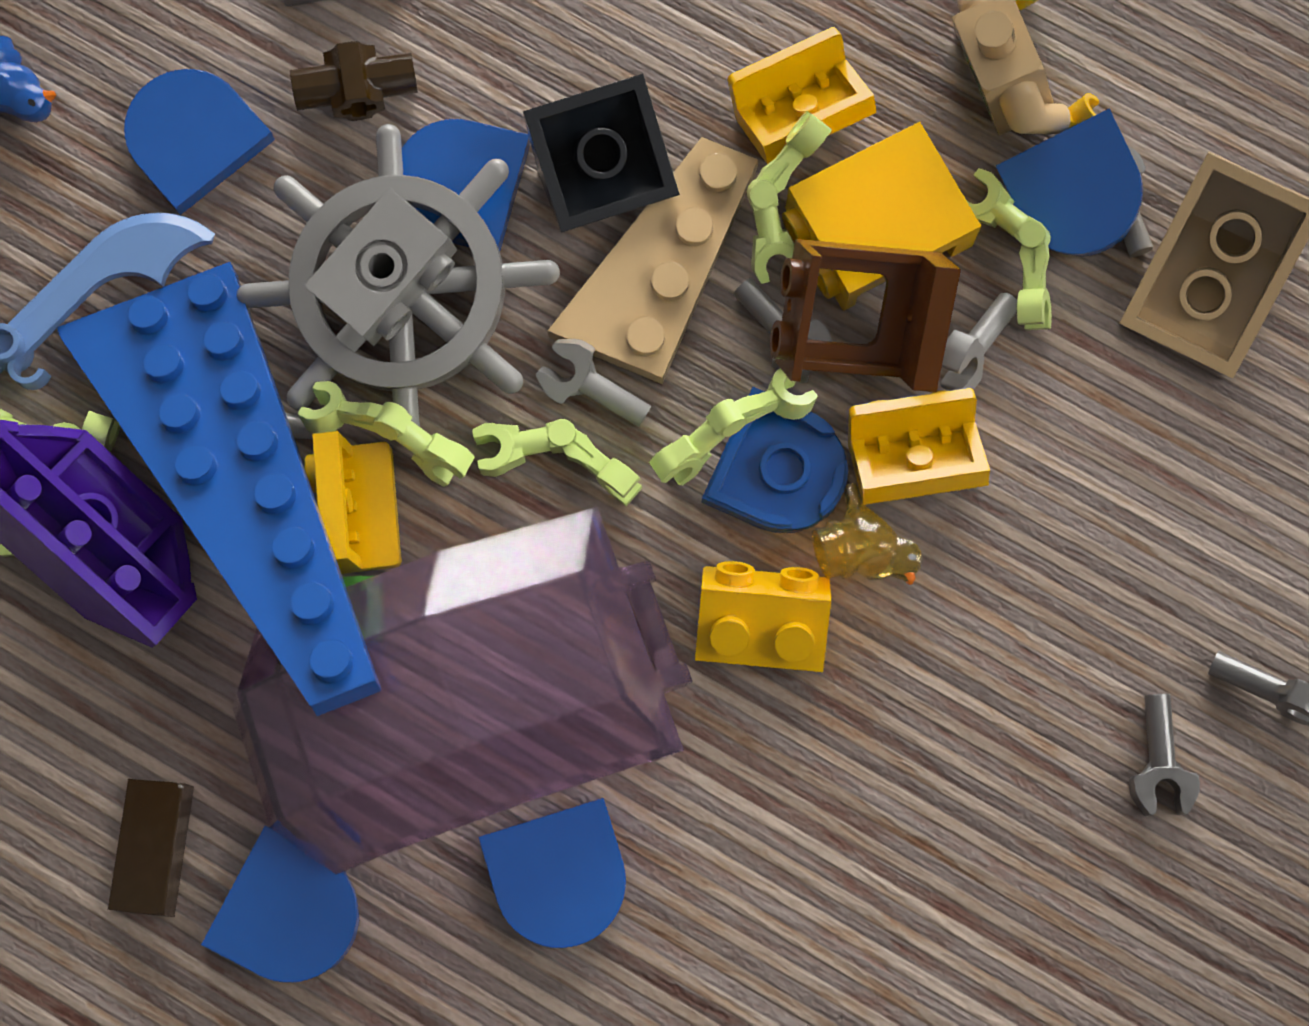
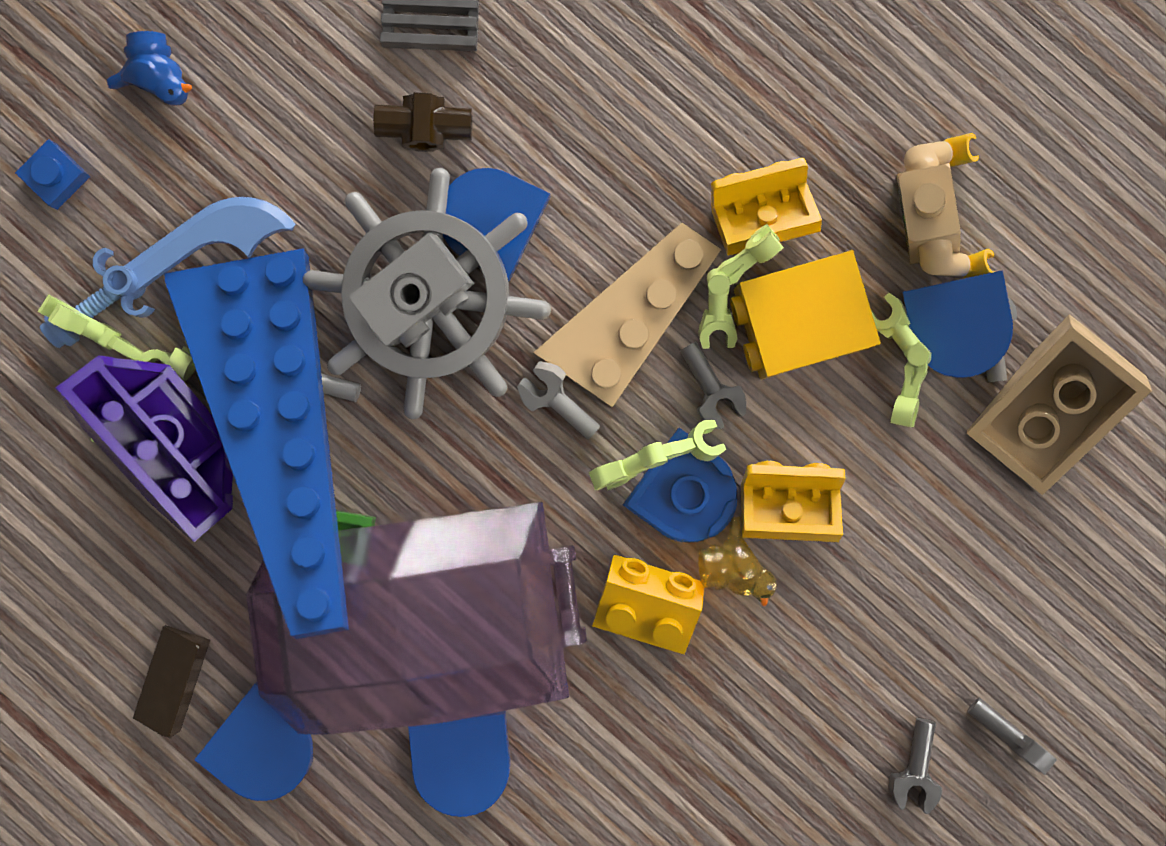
camera: 15 degrees right, 10 degrees up
(191, 134) = (291, 138): blue tile -> none
(356, 501) = (363, 458): yellow bracket -> none
(432, 453) = (428, 432): yellowish green piece -> none
(557, 437) = (521, 435): yellowish green piece -> none
(600, 153) = (601, 224): black slope -> none
(911, 320) = (809, 411): reddish brown window -> none
(966, 352) = (845, 437): light grey bar -> none

